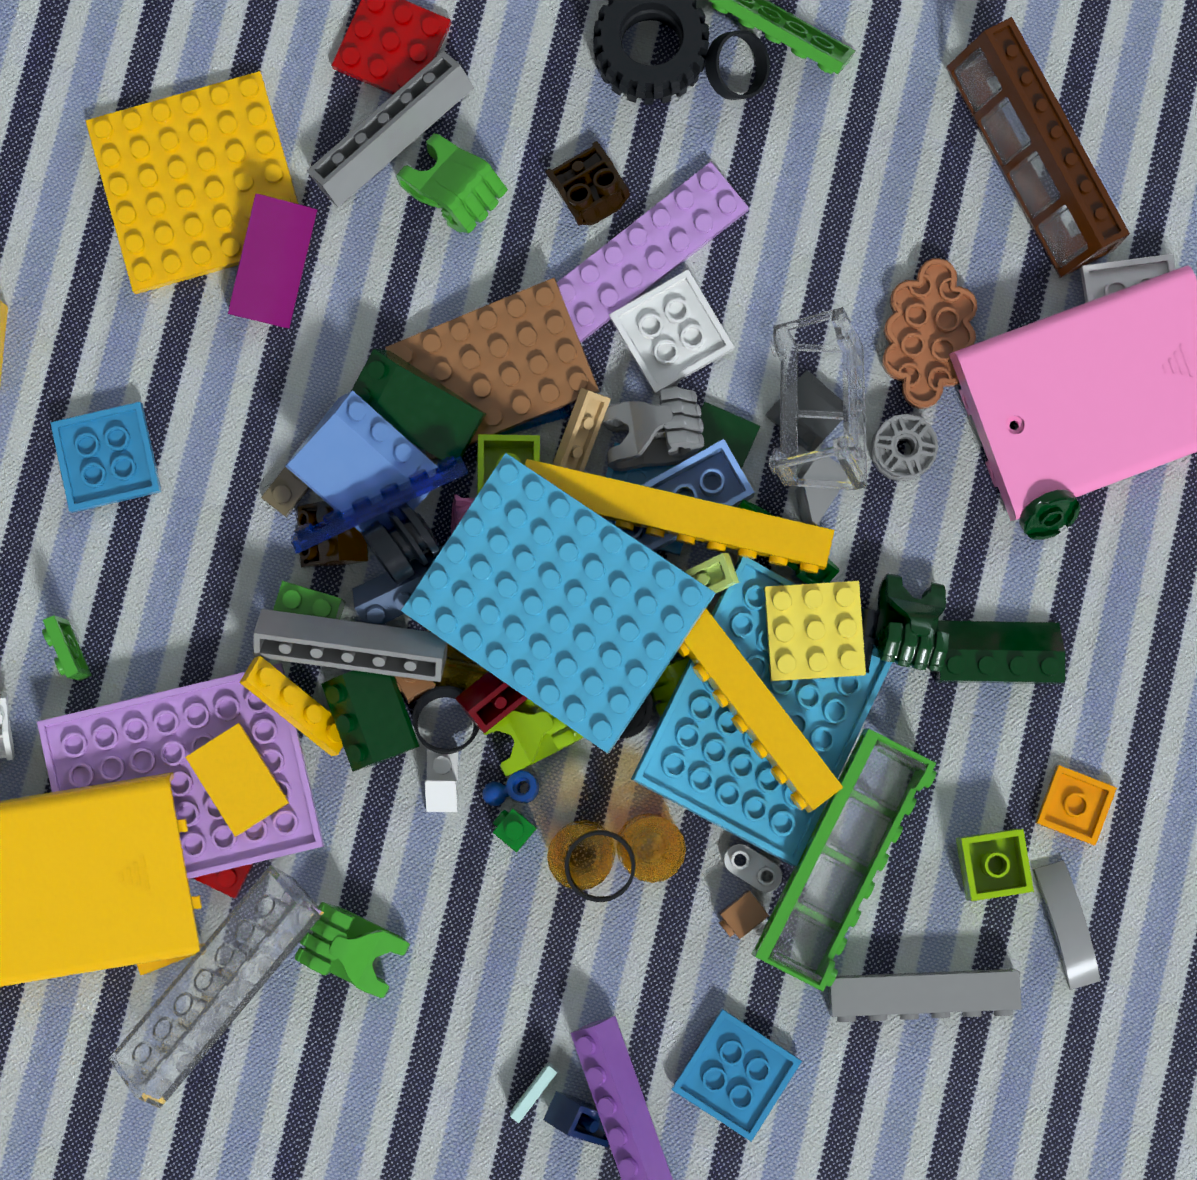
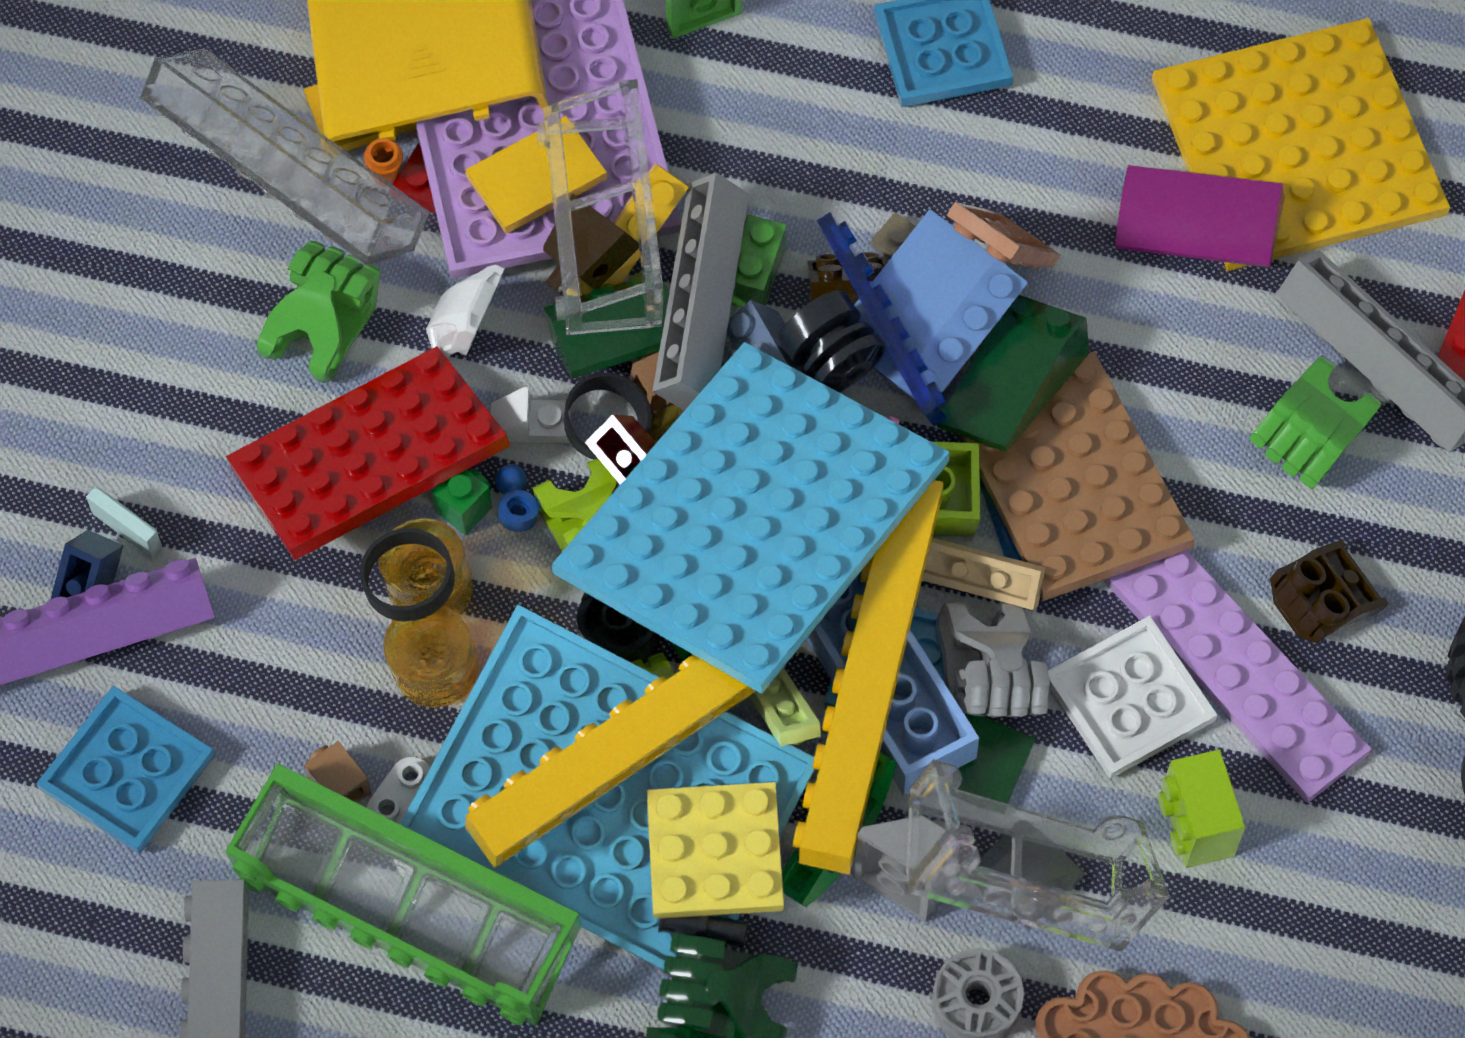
camera: 90 degrees right, 20 degrees down
(207, 904) = (384, 158): none -> orange cone
(212, 767) = (549, 135): none -> clear windscreen
(303, 410) = (1004, 237): none -> nougat plate
(310, 737) = (598, 245): none -> dark brown torso
(354, 835) = (462, 311): none -> white slope
(478, 905) = (367, 452): none -> red plate
(767, 283) = (1201, 809): none -> lime brick

